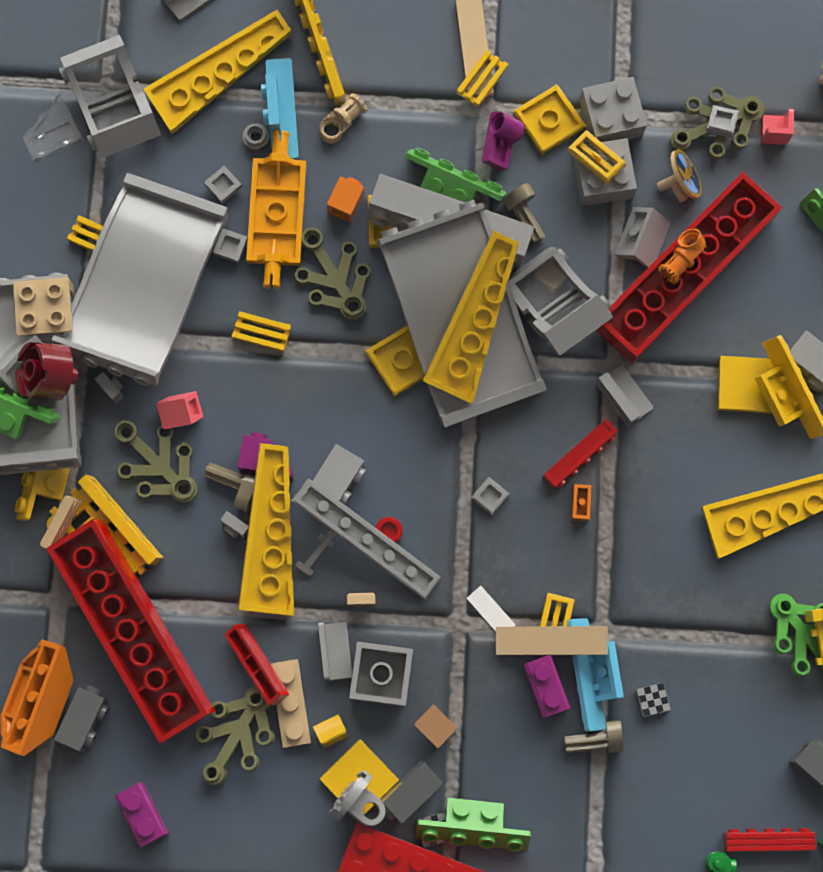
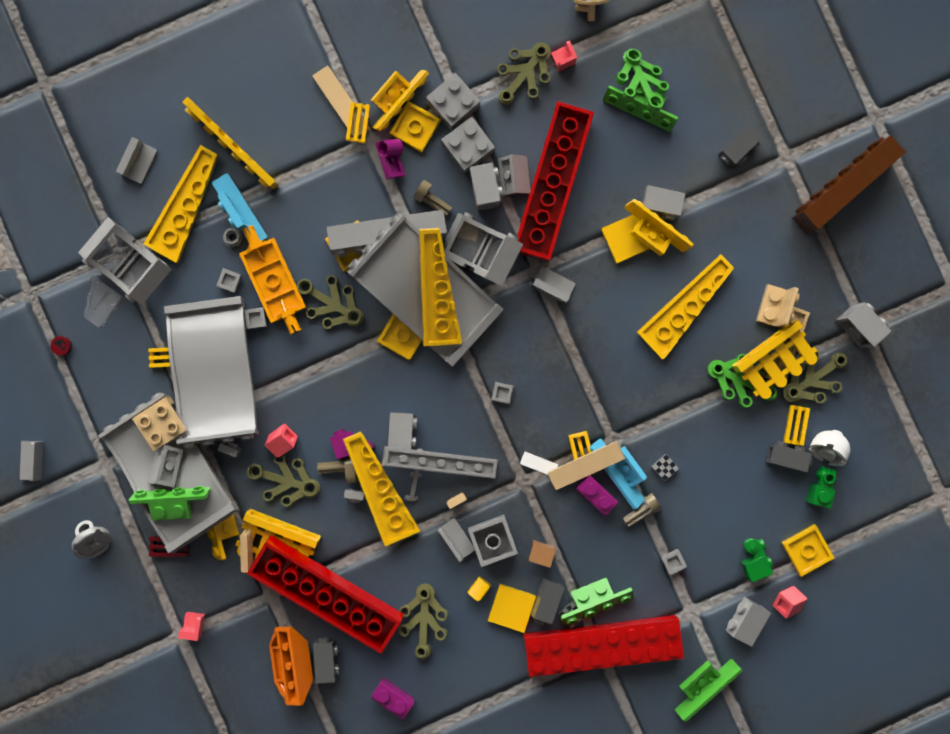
camera: 25 degrees left, 10 degrees up
(45, 371) = (184, 466): dark red brick -> none
(256, 664) = (413, 573): red piece -> none
(265, 322) = (289, 366): yellow tile -> none
(292, 709) = (446, 584): tan plate -> none
(342, 118) = (281, 195): tan connector -> none
(345, 198) = (312, 249): orange brick -> none
(355, 798) = (515, 625): light grey tile -> none
(391, 528) = (450, 446): red tile -> none
(451, 182) = (374, 204): bright green bracket -> none
(542, 68) = (393, 96): none -> yellow bracket
(580, 454) = (545, 338): red piece -> none
(581, 503) = (560, 368): orange piece -> none
(600, 230) = (485, 188): none -> light grey brick
(603, 829) = (673, 562): none -> light grey plate
(612, 171) = (474, 145): yellow tile -> none
(683, 255) = (547, 178): orange connector -> none
(685, 180) = (522, 122): shield -> none
(722, 121) = (527, 71): light grey tile -> none
(769, 840) = (776, 516): red piece -> none

